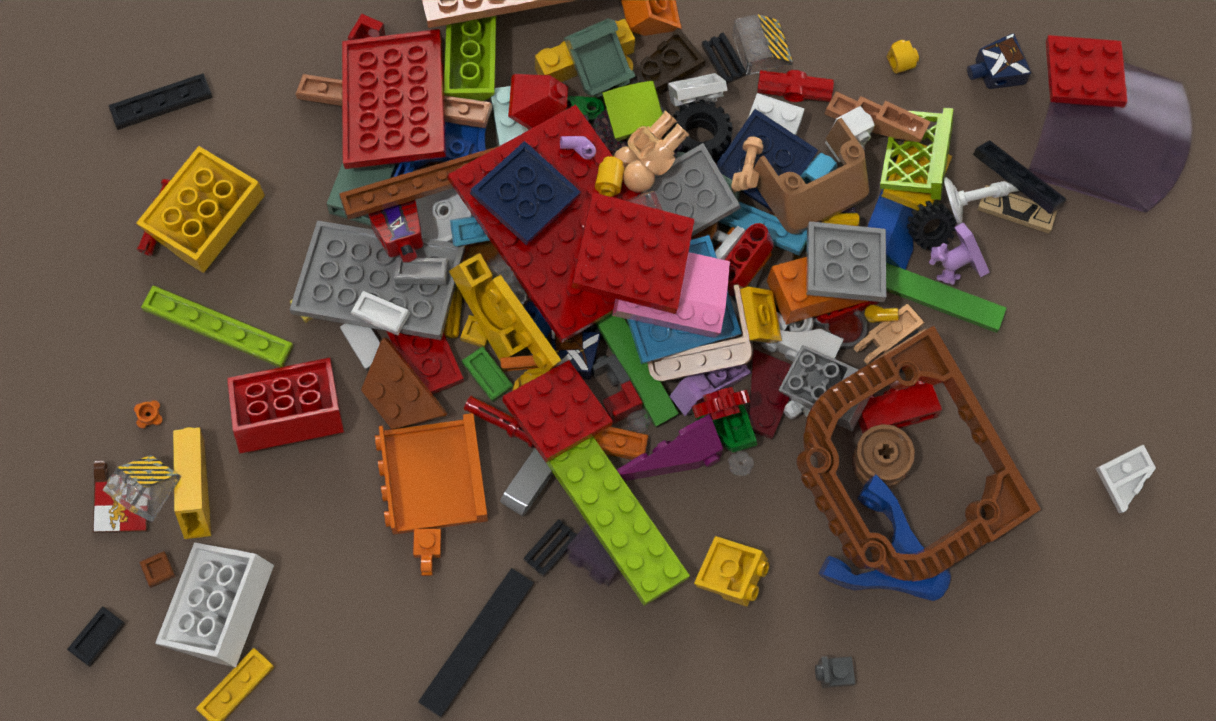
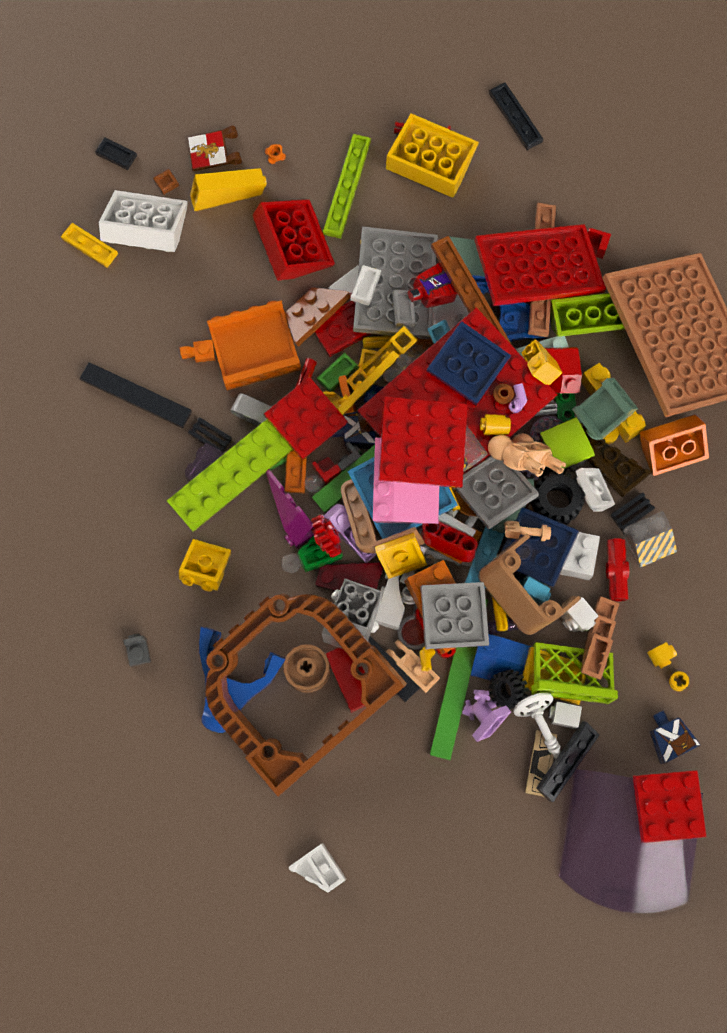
camera: 90 degrees right, 5 degrees up
(142, 486) = (214, 153): clear slope -> none
(531, 115) = (541, 363): none -> yellow slope
(568, 167) = (499, 398): none -> dark orange plate
(937, 52) = (673, 684): none -> yellow bush
(965, 170) = (565, 715): none -> white brick

